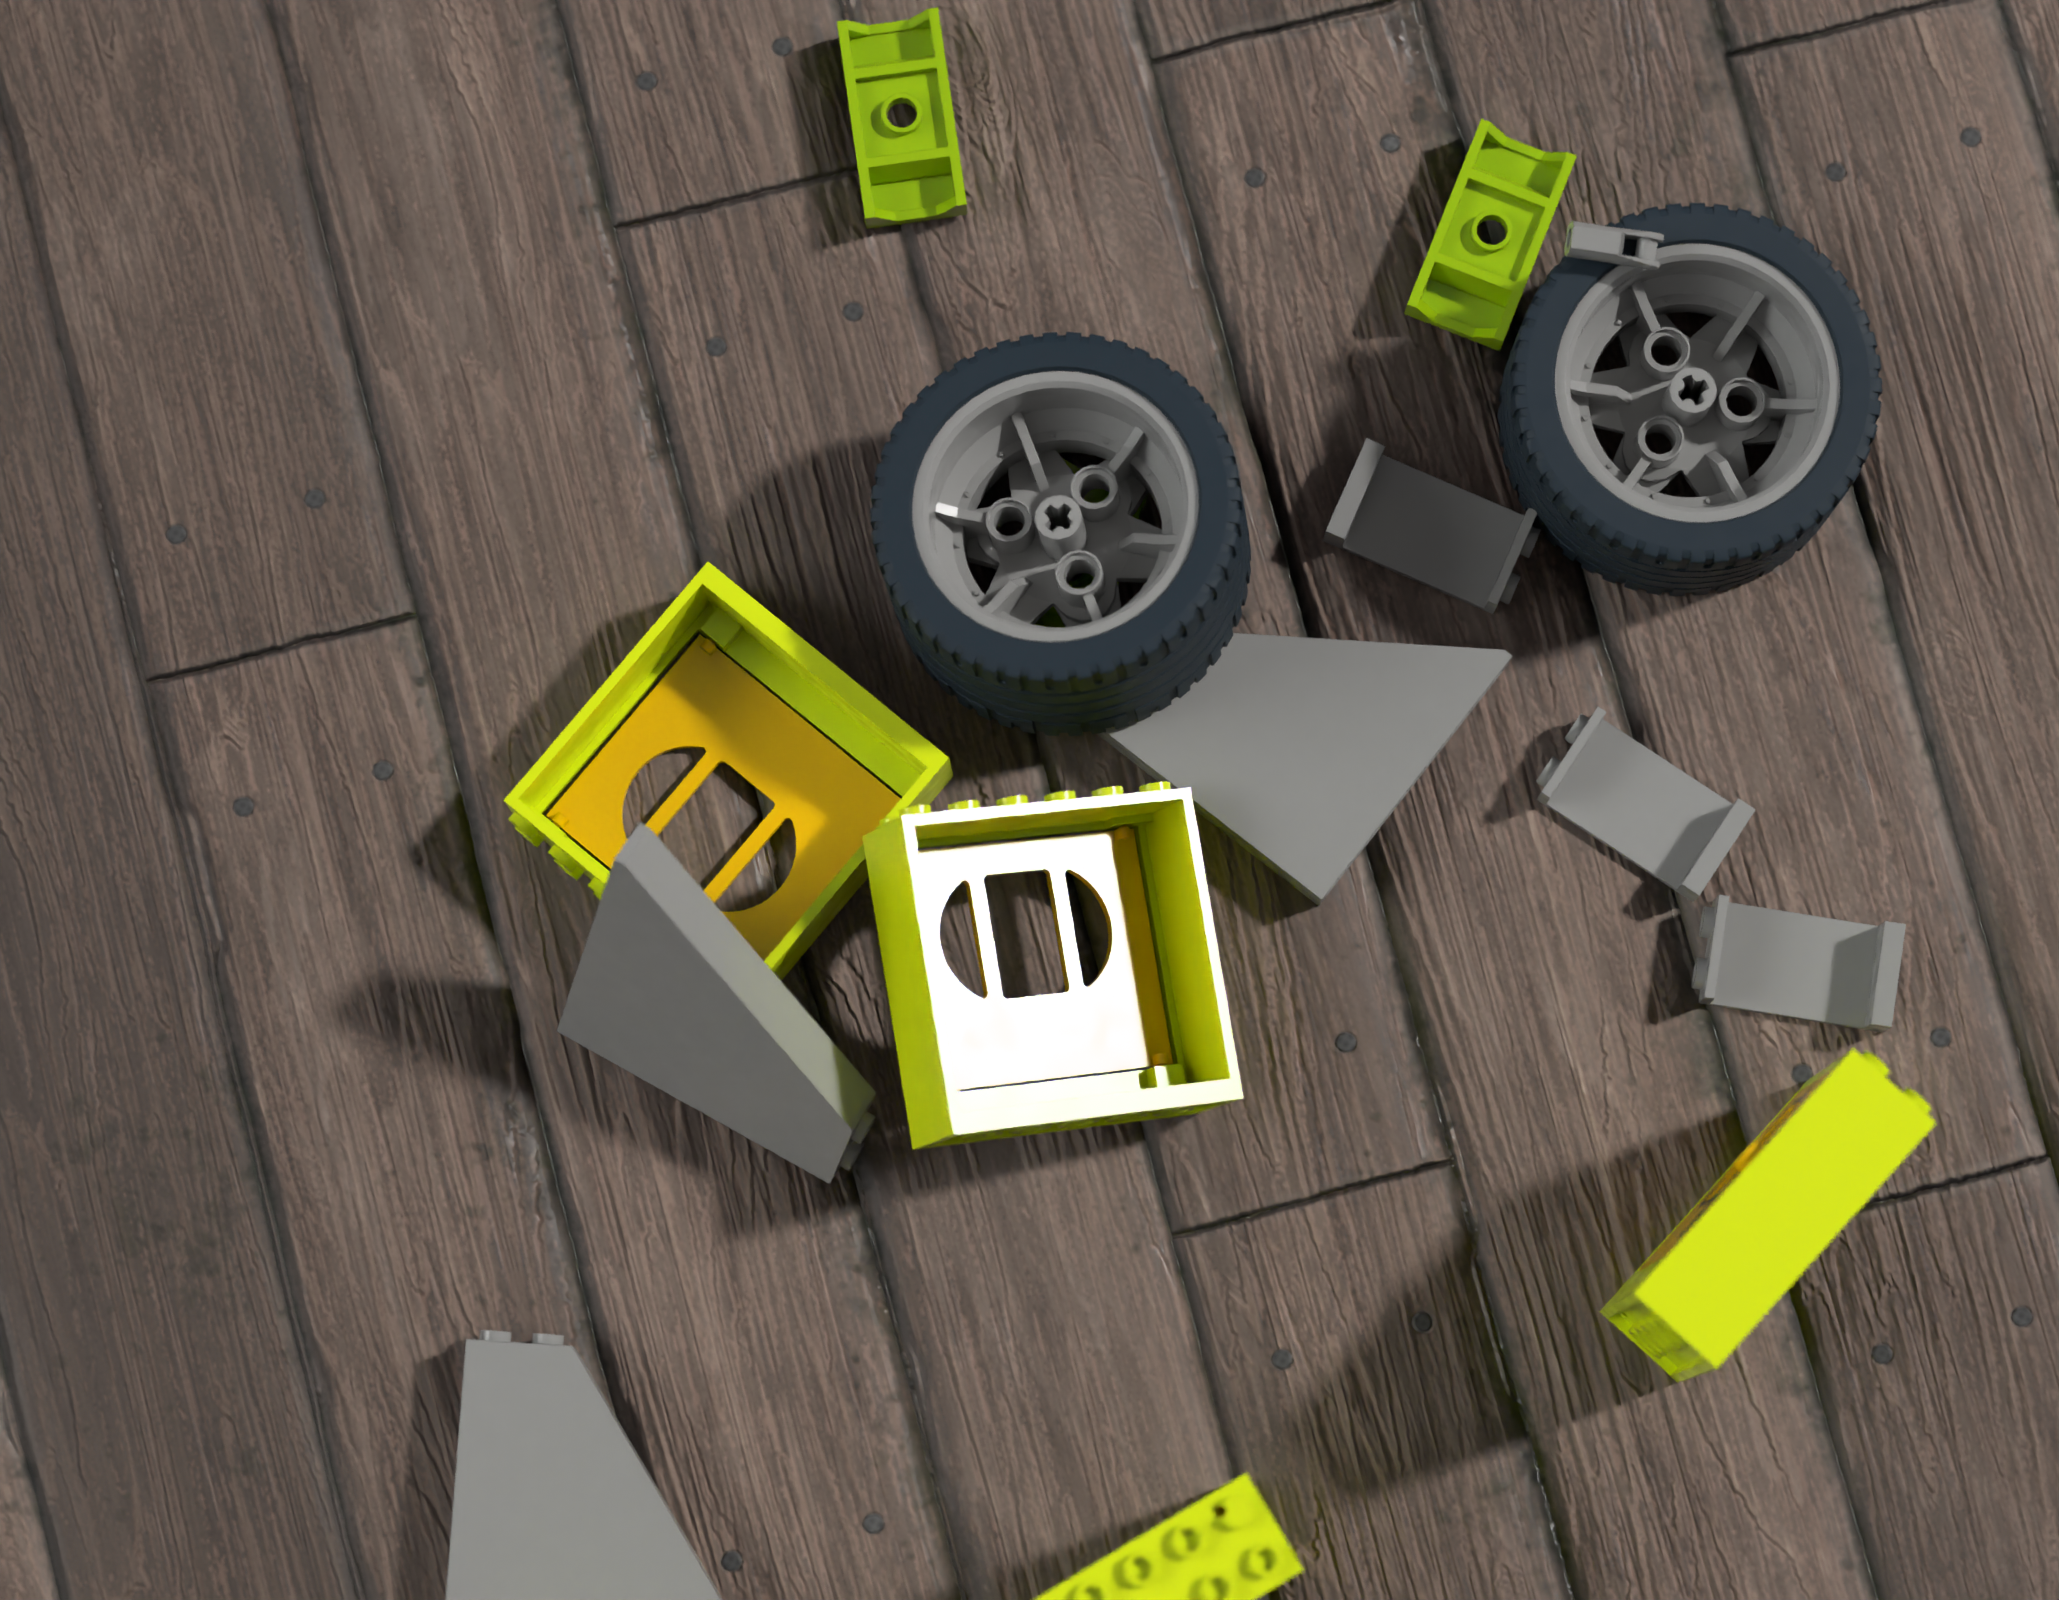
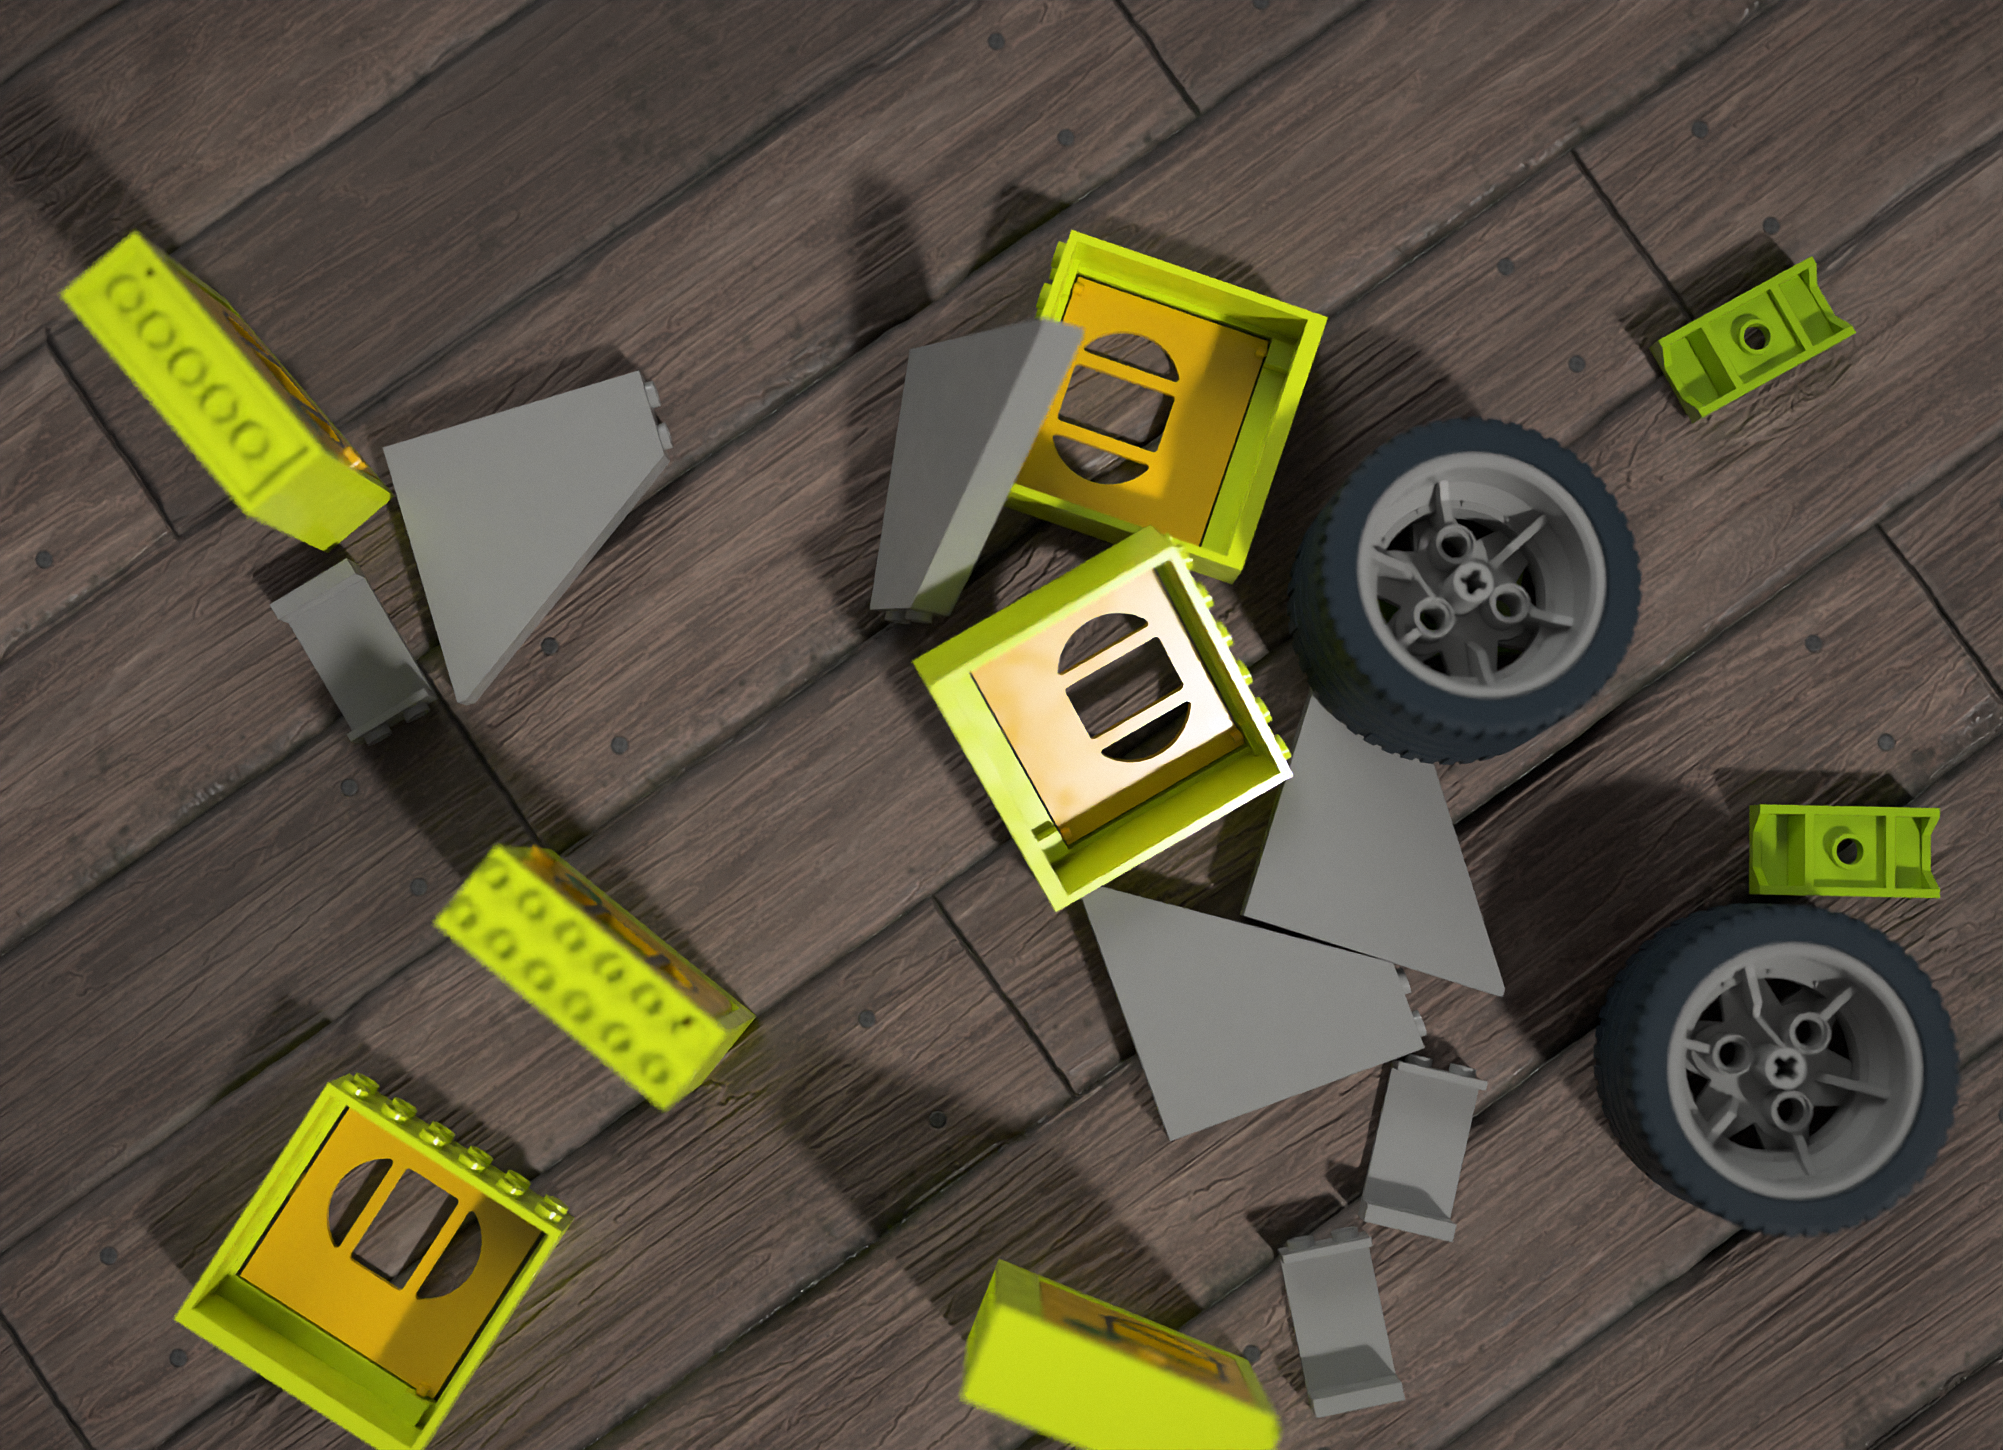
camera: 70 degrees right, 5 degrees up
(1424, 945) = (1241, 1011): none -> light grey slope
(1430, 530) = (1579, 892): light grey panel -> none
(1607, 242) = (1886, 951): light grey bar -> none

